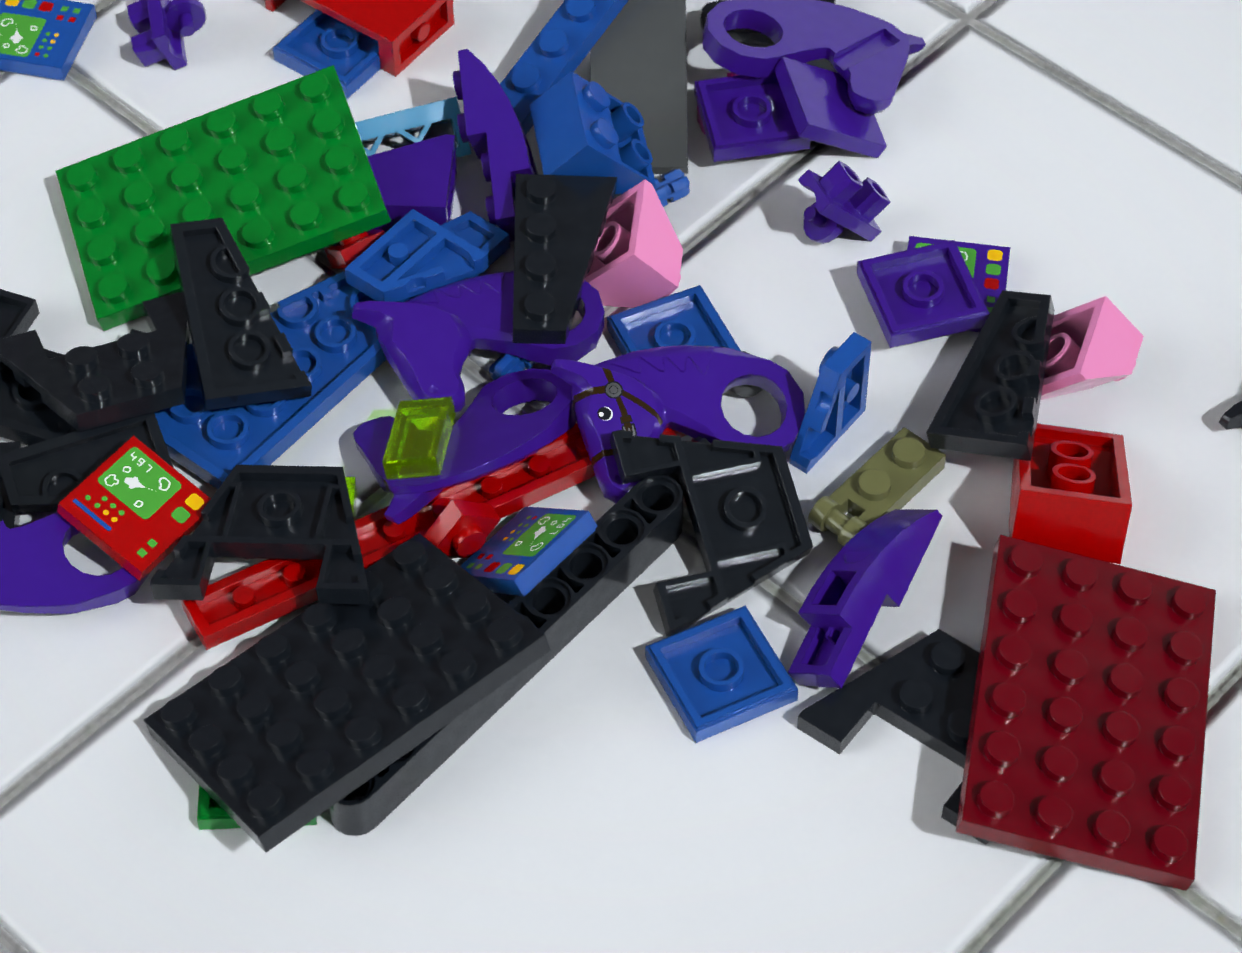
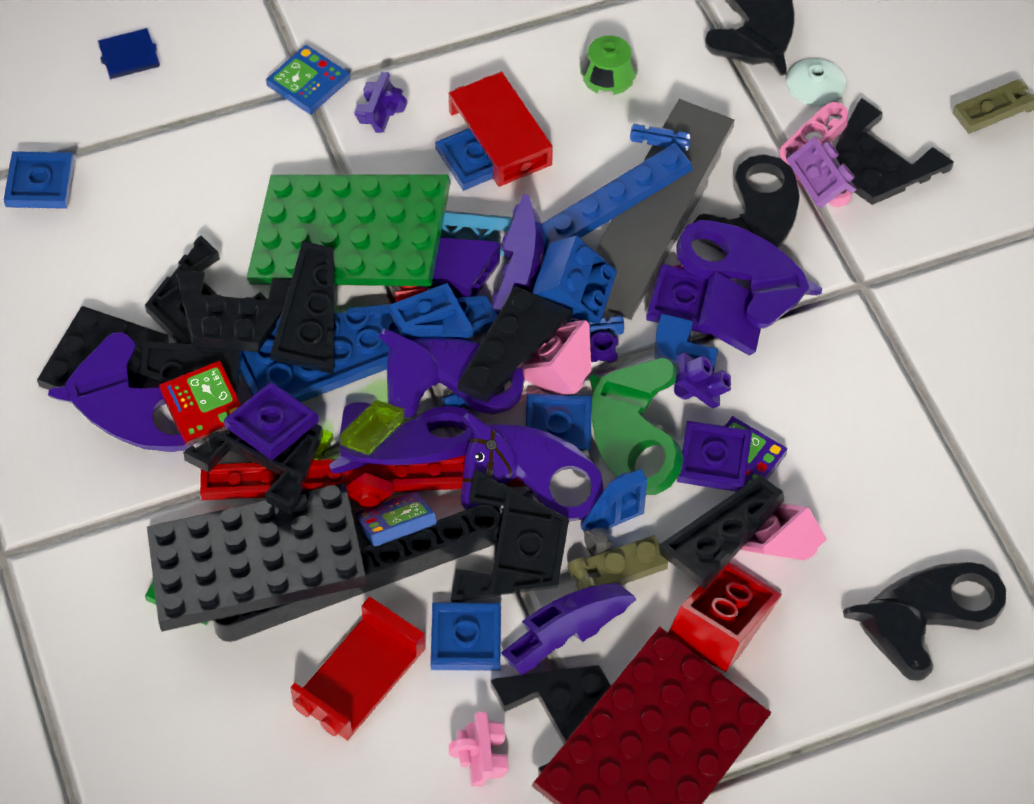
camera: 25 degrees right, 5 degrees up
(261, 487) = (271, 420): none -> dark purple tile
(595, 784) = (360, 671): none -> red panel
(682, 215) = (606, 341): none -> dark purple plate
(768, 307) = (619, 421): none -> green animal
(771, 177) = (674, 338): none -> blue brick
(820, 475) = (597, 541): none -> dark grey hinge
(844, 819) = (475, 749): none -> bright pink hips

